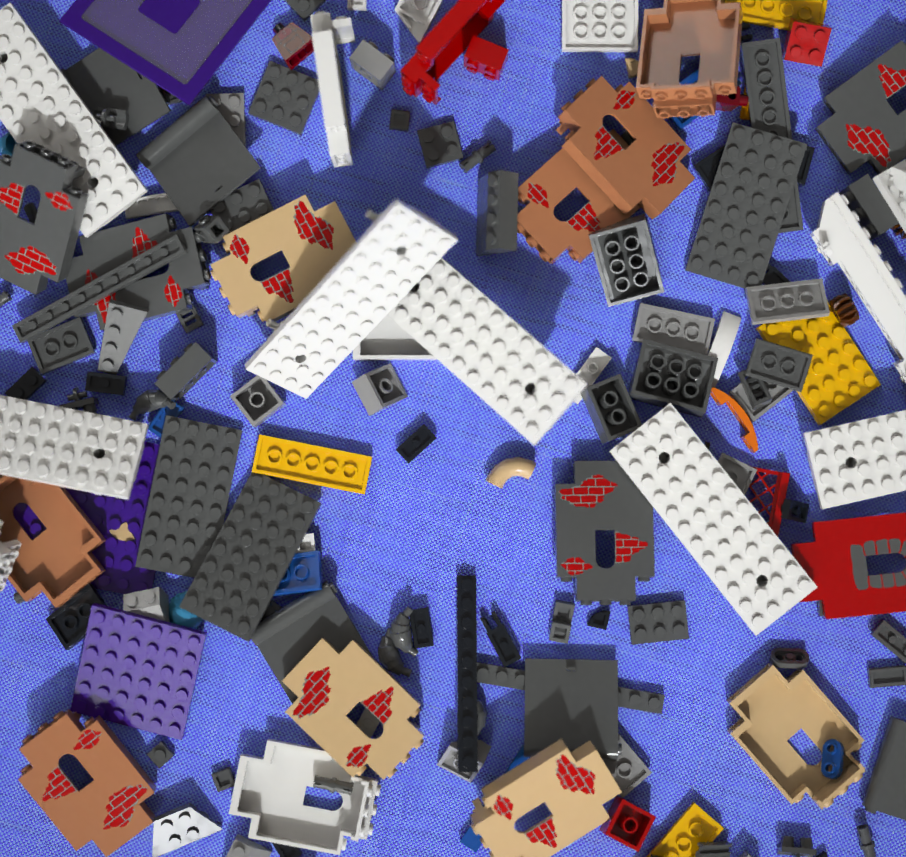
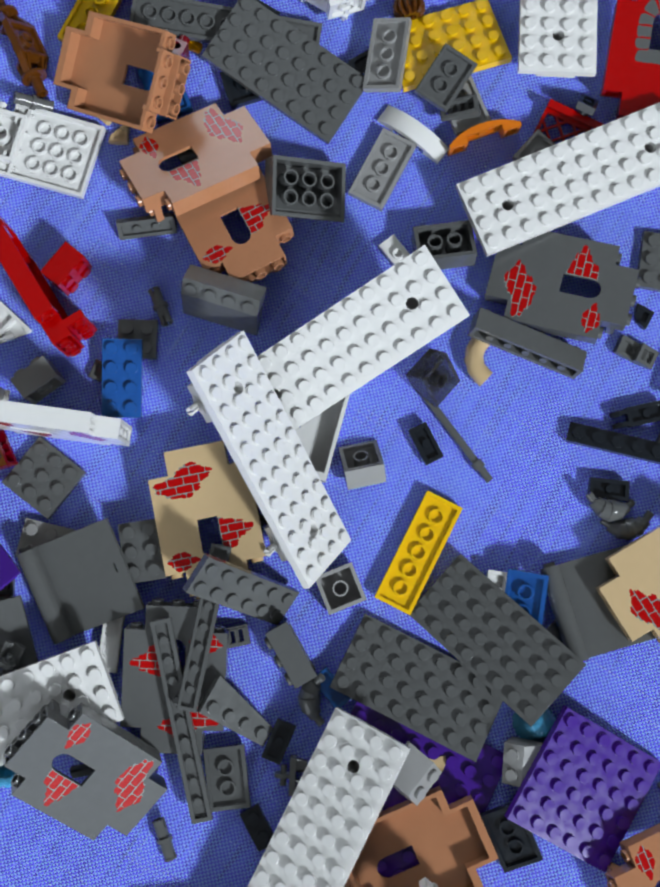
camera: 80 degrees left, 5 degrees down
(108, 513) = (416, 775): none -> light grey slope
(185, 284) = (200, 645): none -> dark grey tile
(211, 229) = (154, 585): dark grey brick -> none
(228, 308) = (240, 589): none -> dark grey plate
(398, 141) = (122, 377): none -> blue plate
(410, 498) = (477, 464): none -> dark grey bar
(481, 433) = (433, 376): none -> clear smoke slope
(537, 513) = (527, 343): none -> dark grey brick
(549, 117) = (145, 226): none -> dark grey plate
(674, 377) = (429, 179): dark grey slope -> none

